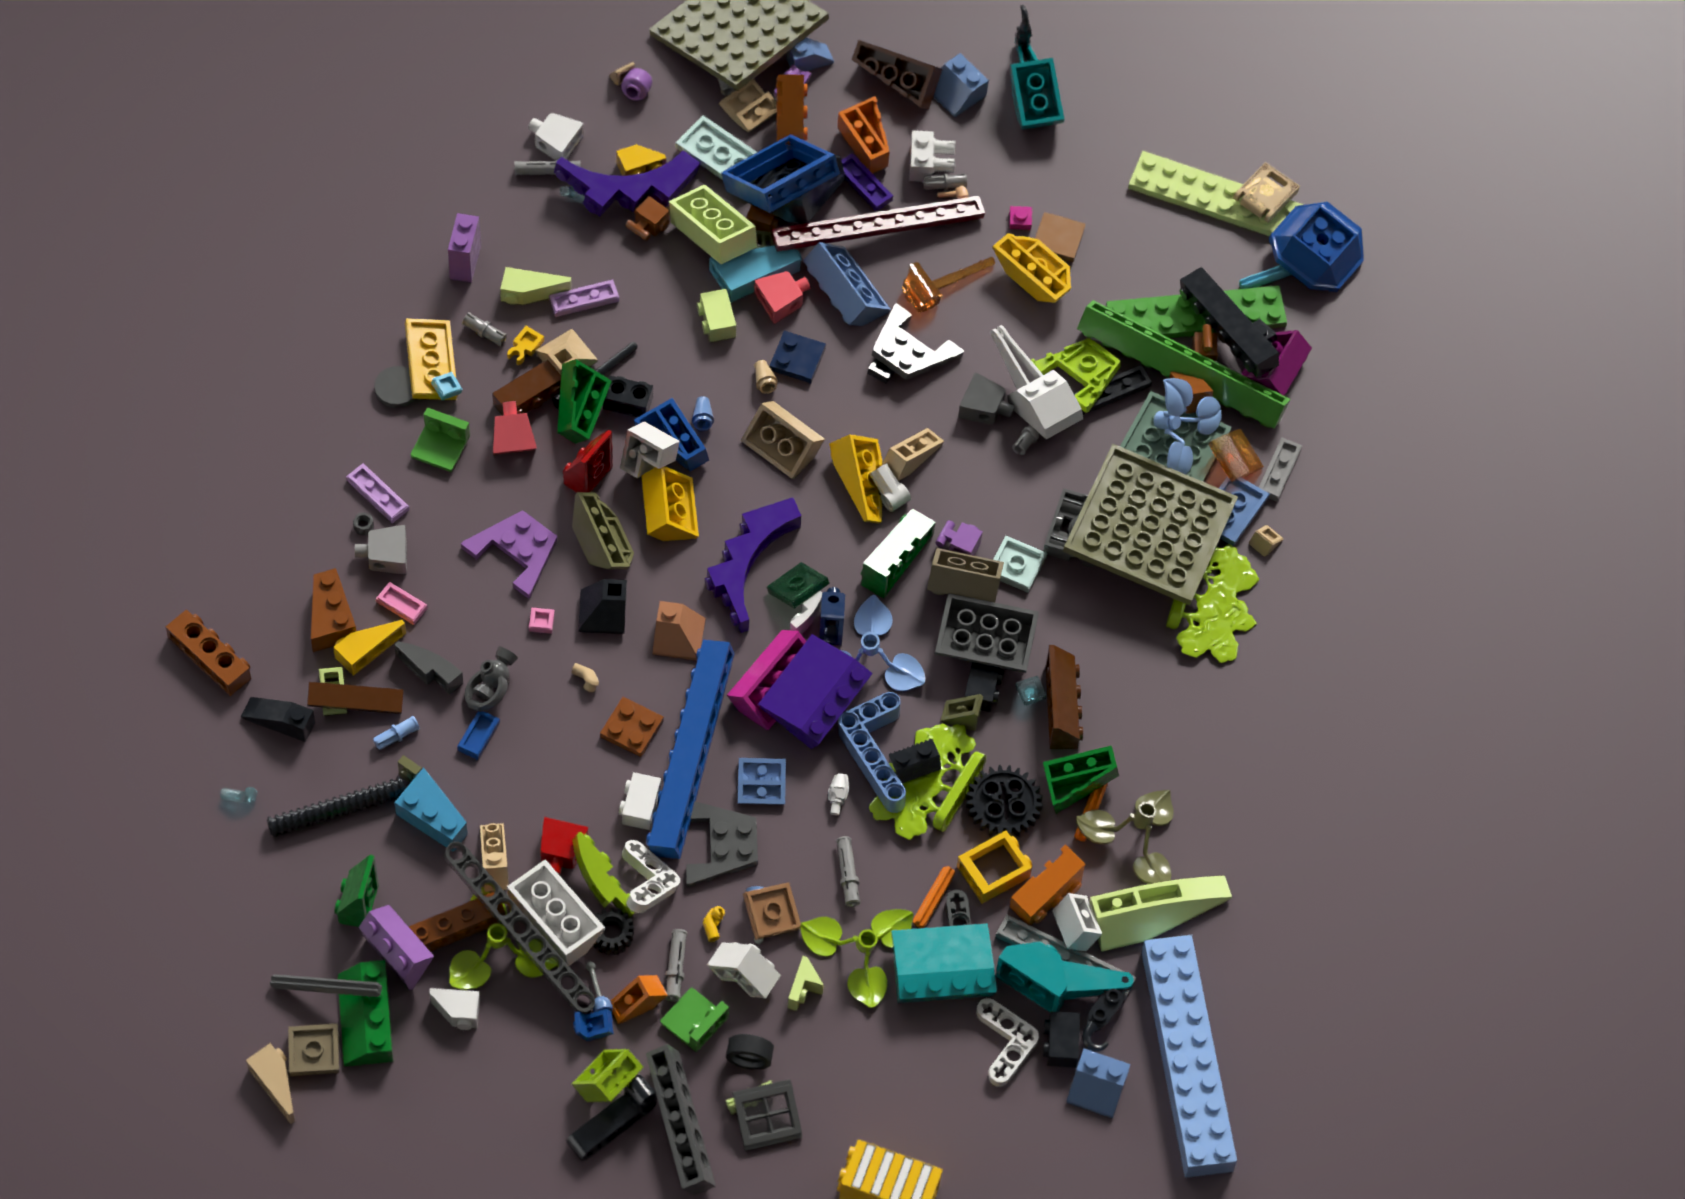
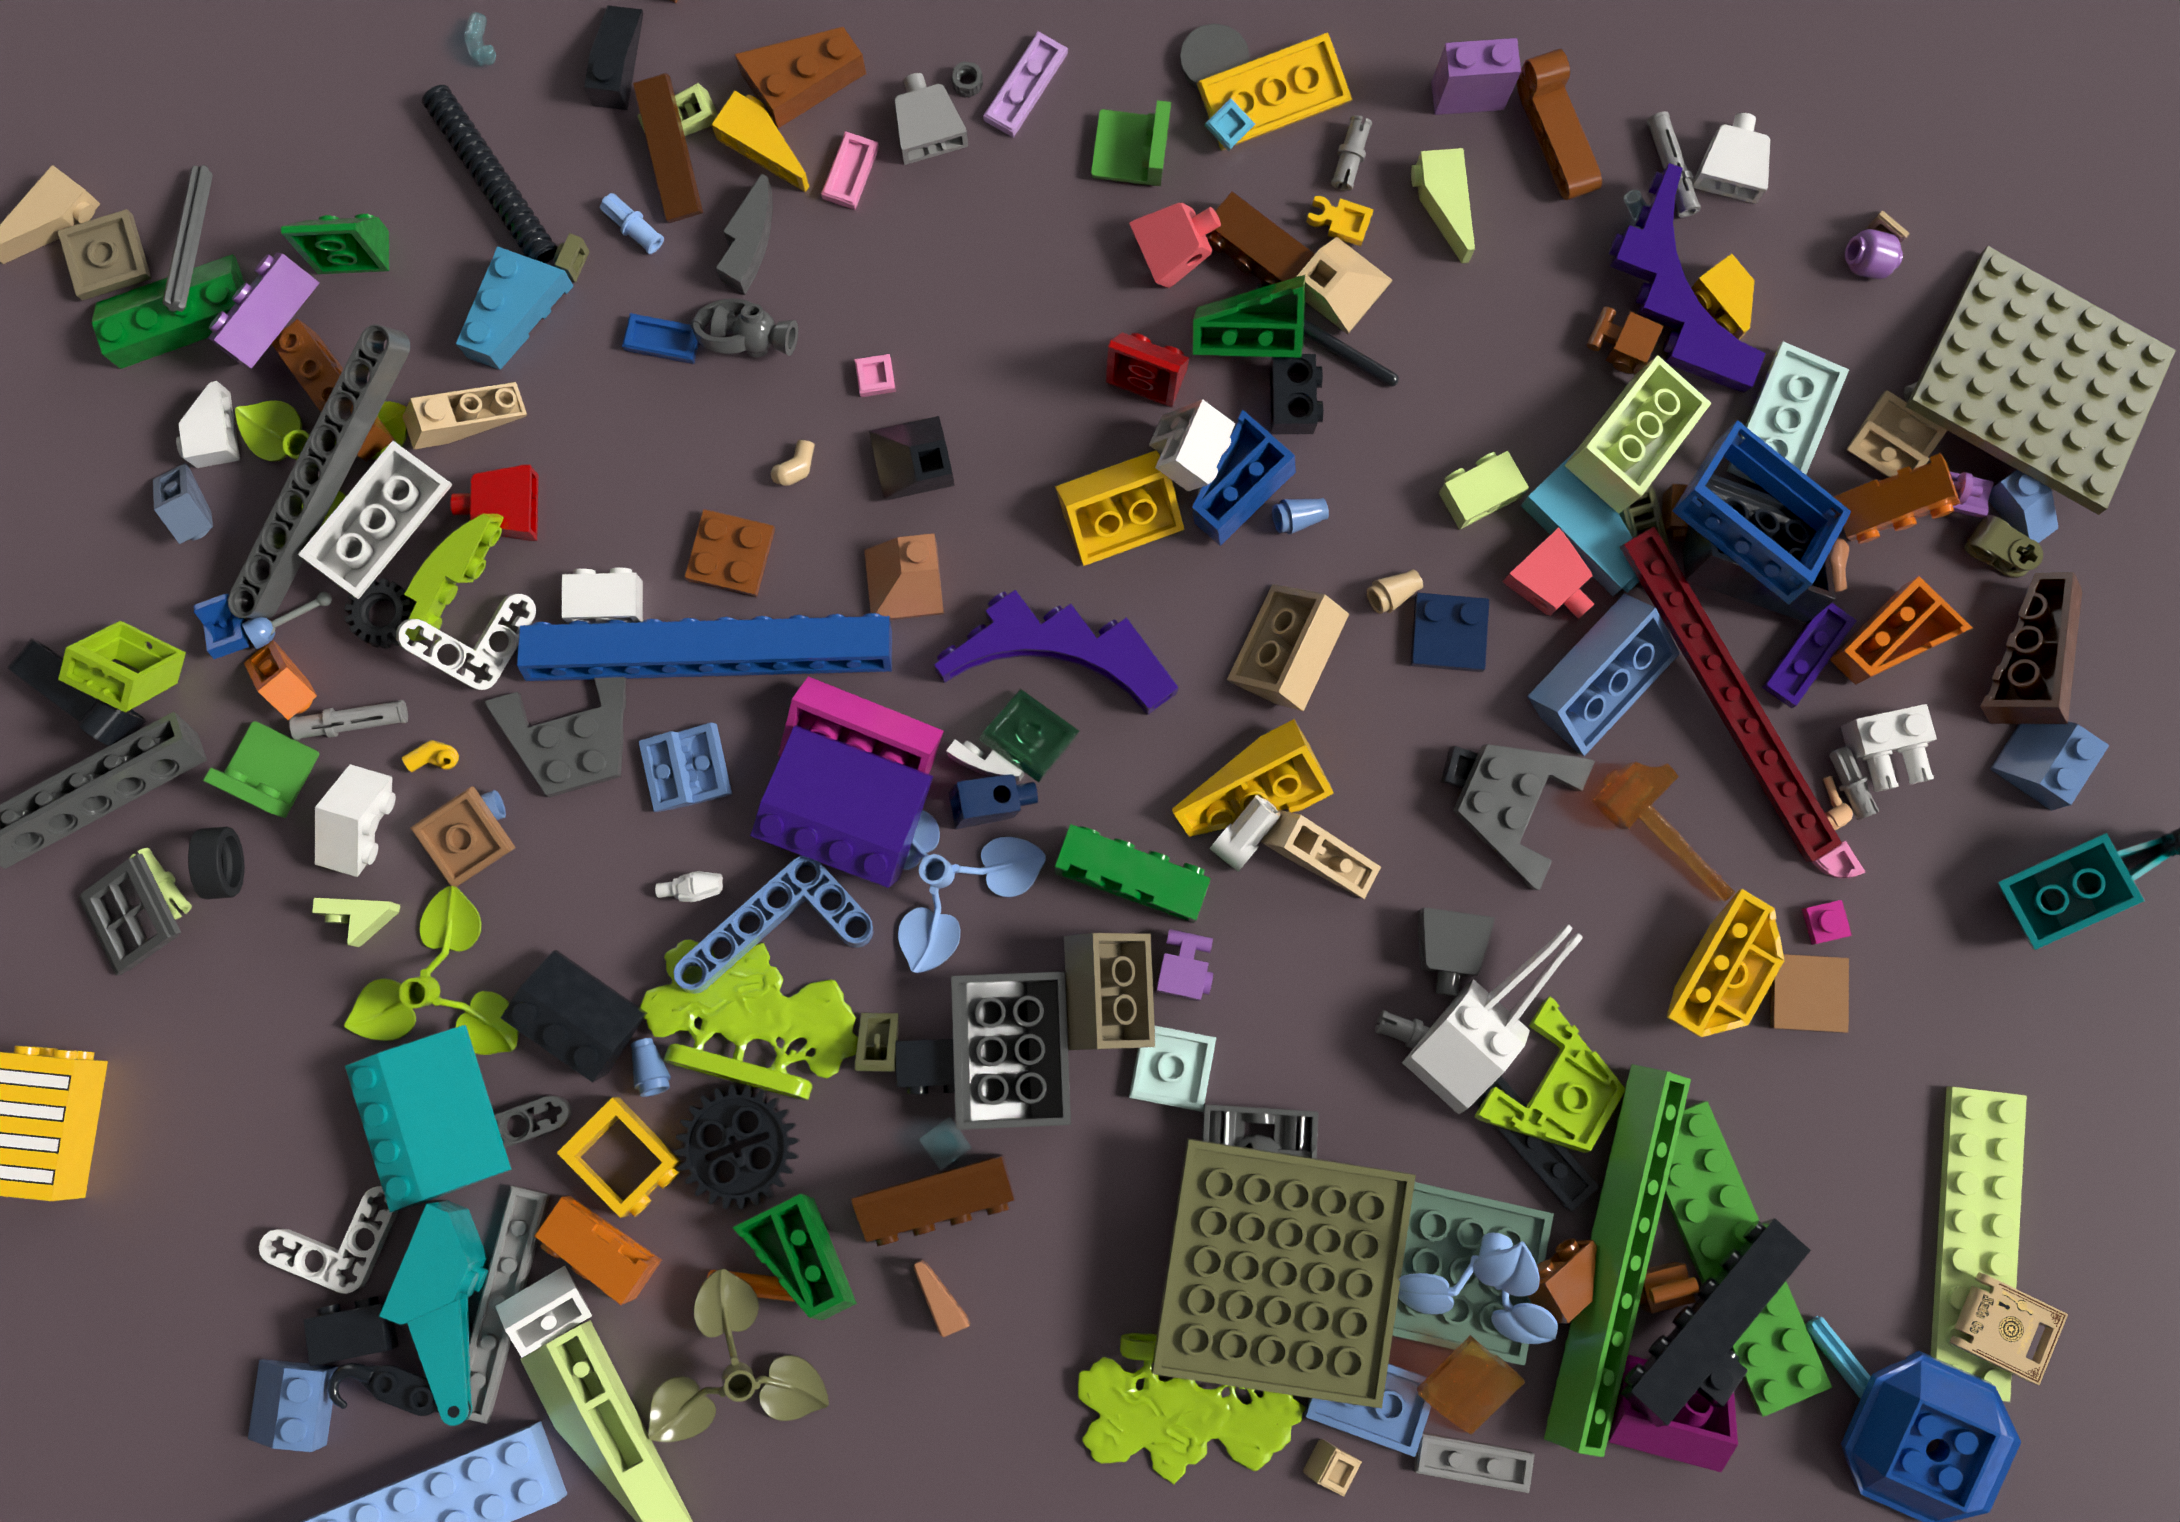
camera: 75 degrees right, 20 degrees up
(502, 1033) = (181, 504): none -> sand blue slope
(509, 218) = (1557, 125): none -> dark orange beam
(520, 539) = (1001, 313): medium lavender wing -> none
(584, 298) = (1456, 284): lavender tile -> none
(600, 533) = (1035, 422): olive wedge -> none
(830, 71) = (2002, 546): none -> olive piece
(849, 879) = (547, 940): light grey pin -> none
(901, 870) = (574, 1016): none -> black slope
(915, 761) = (760, 990): black brick -> none
(933, 897) = (550, 1075): orange axle -> none
(944, 840) = (648, 1068): none -> medium blue cone
(989, 201) = (1840, 862): none -> bright pink tile
(1122, 714) = (944, 1308): none -> nougat slope

